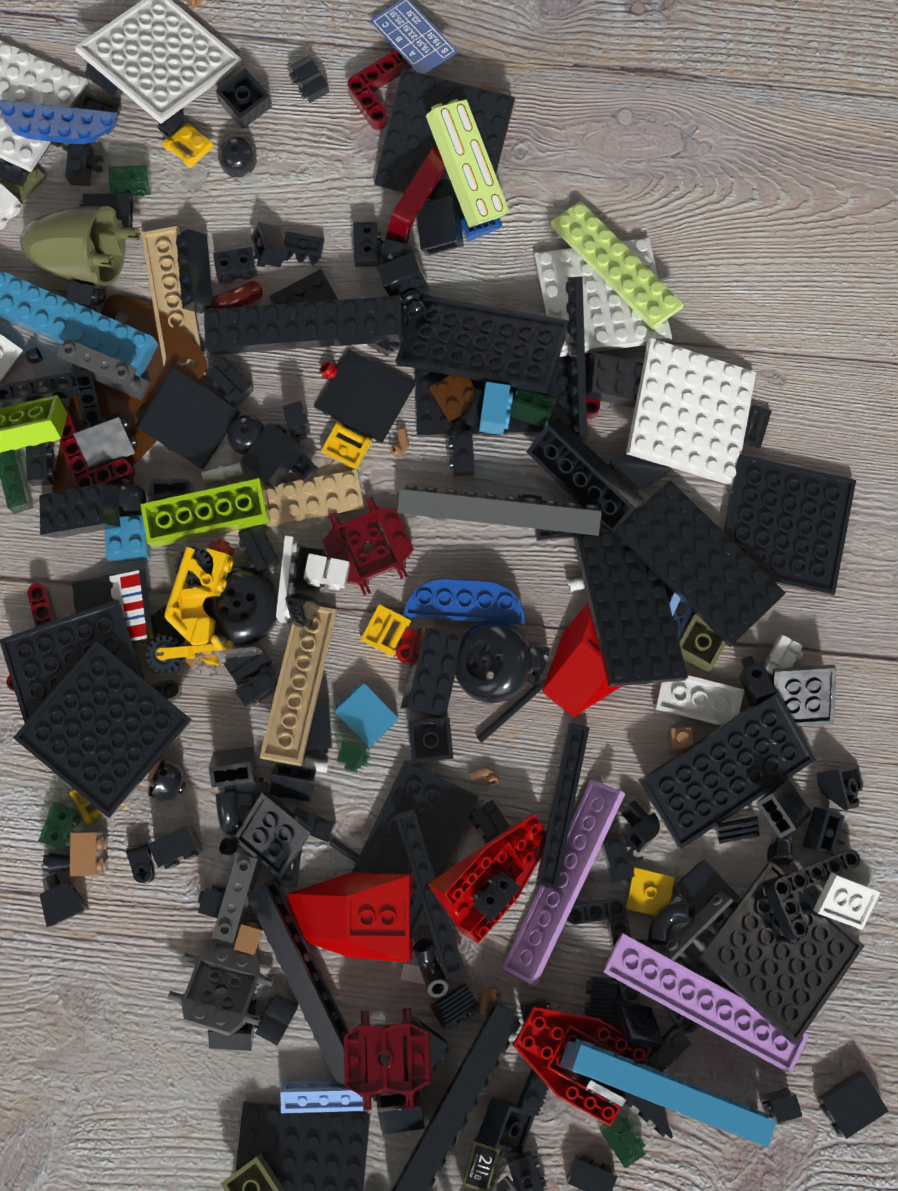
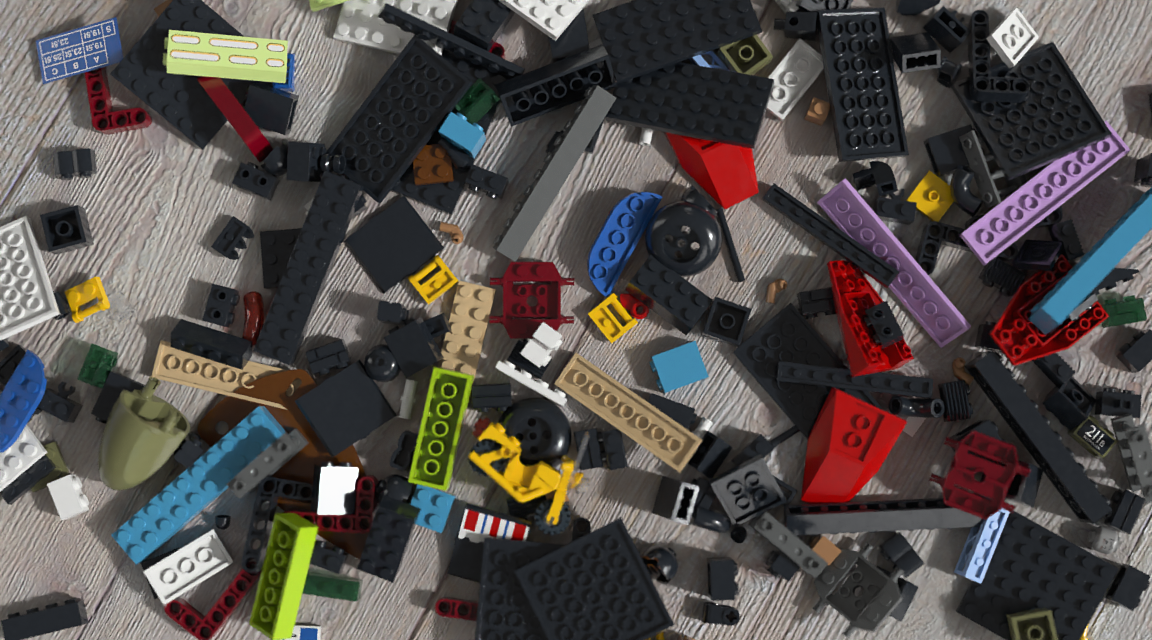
camera: 60 degrees left, 5 degrees up
(237, 157) = (118, 260): black cylinder -> none
(268, 245) = (218, 267): black brick -> none
(302, 609) = (565, 380): black slope -> none
(328, 369) = (356, 265): red plate -> none
(353, 757) = (711, 393): clear green brick -> none
(736, 829) = (913, 99): black tile -> none

